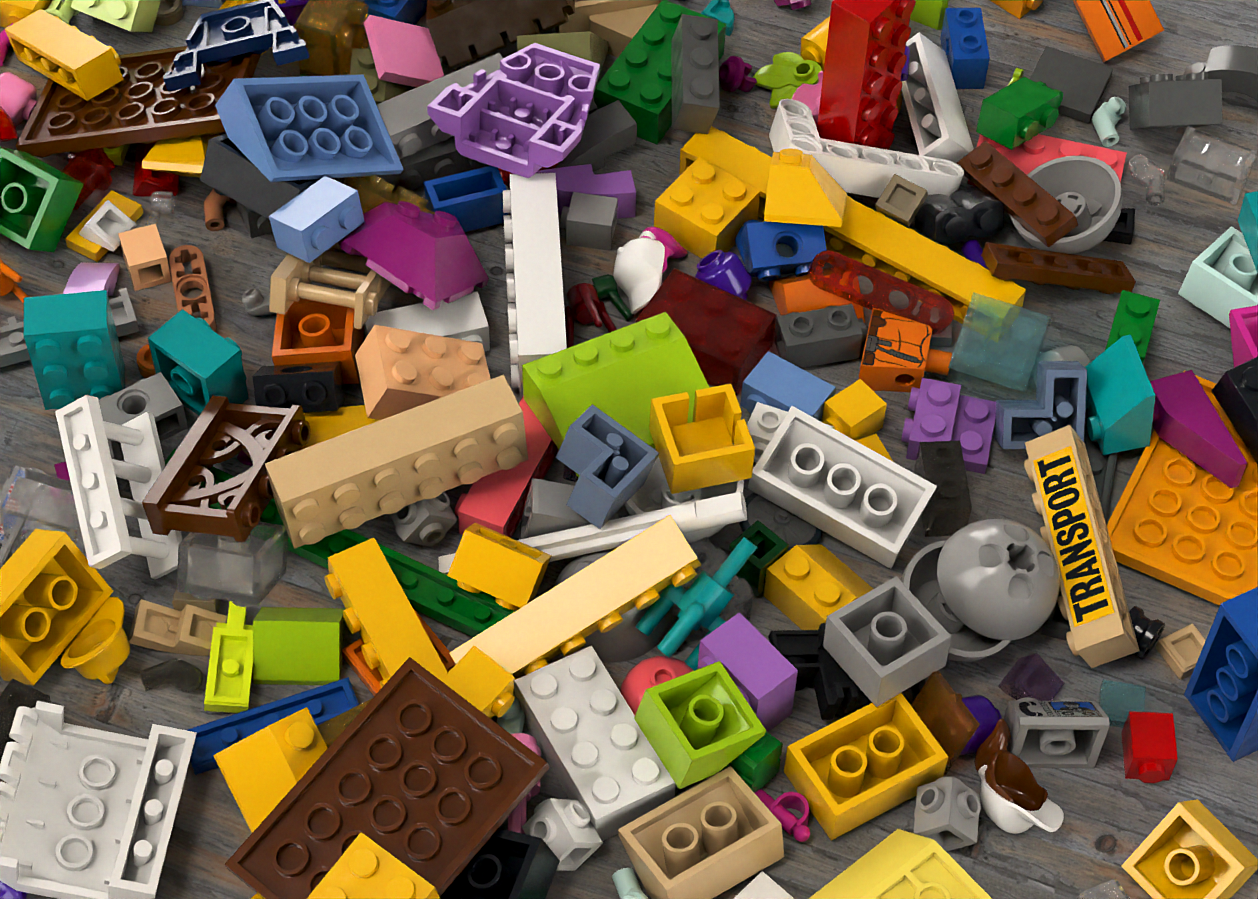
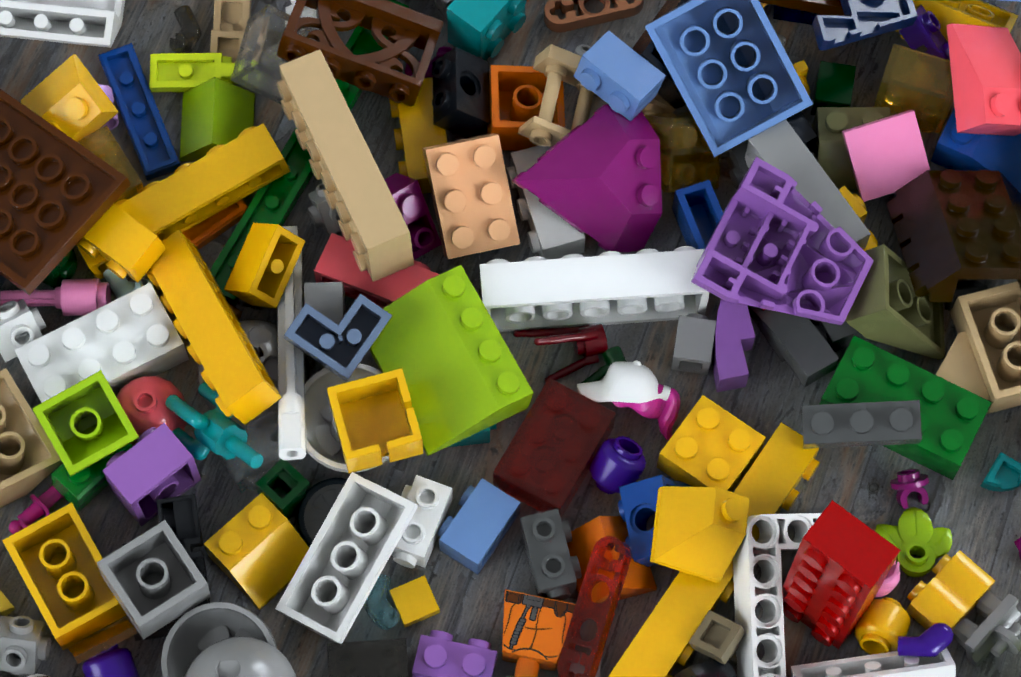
camera: 90 degrees right, 15 degrees up
(855, 411) = (457, 586): yellow brick -> none

